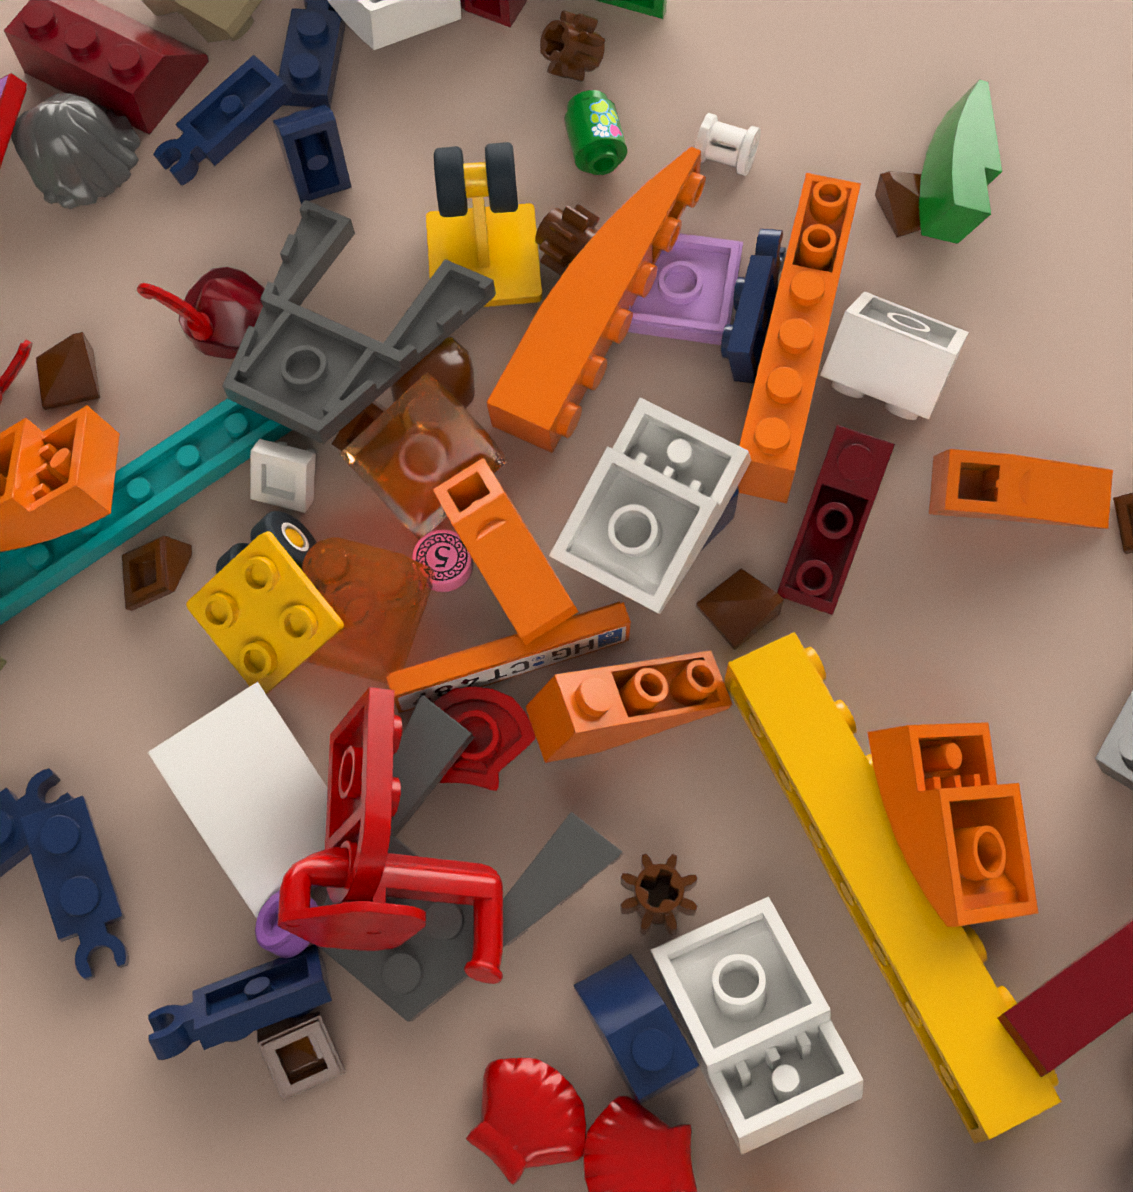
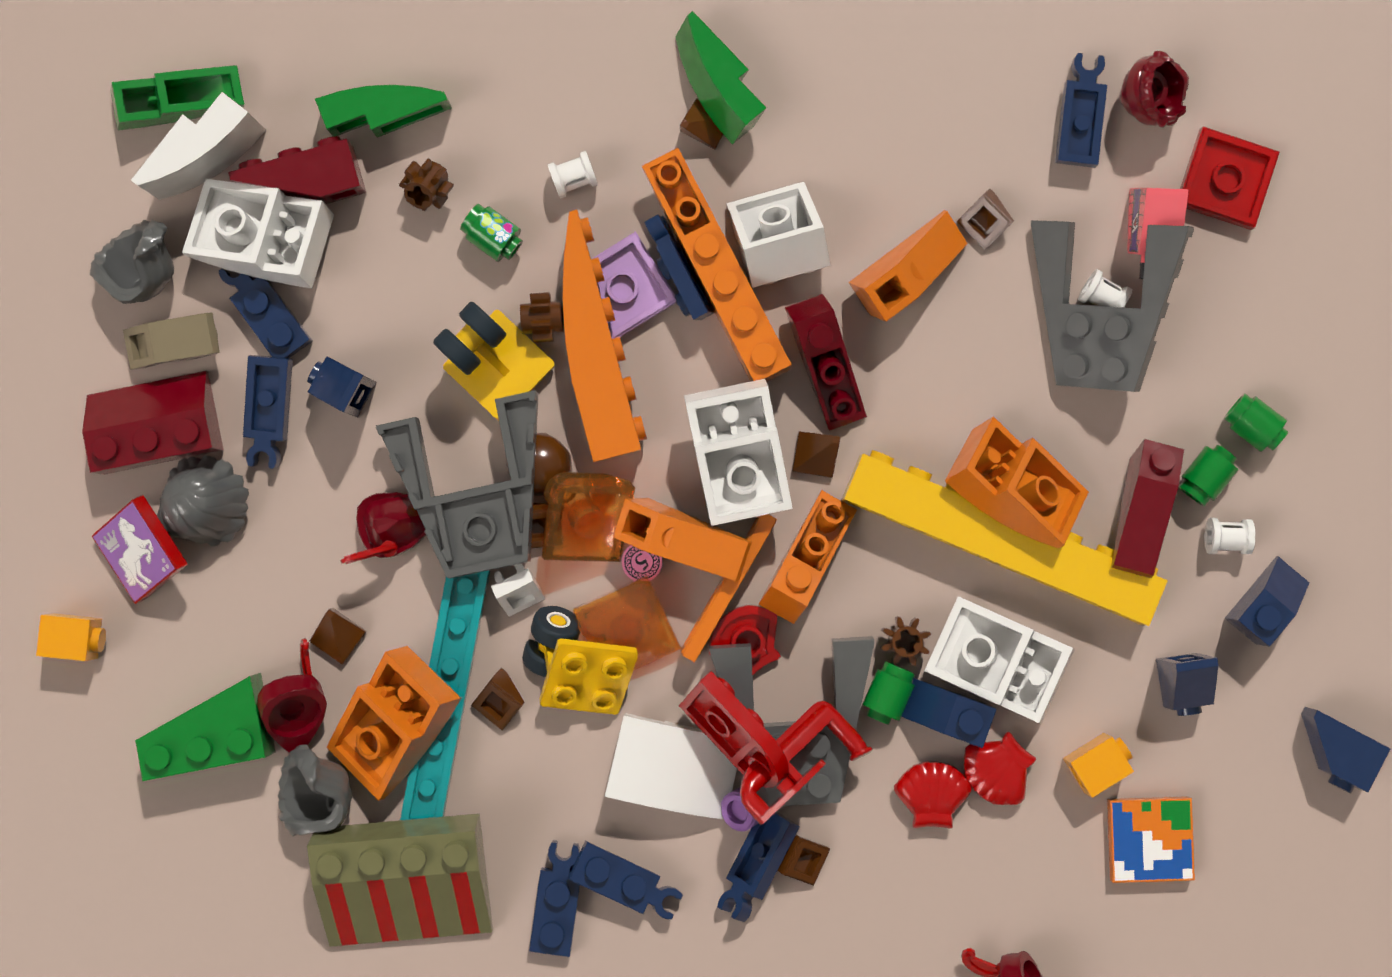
camera: 50 degrees left, 20 degrees up
(584, 939) = (889, 693): none -> green brick

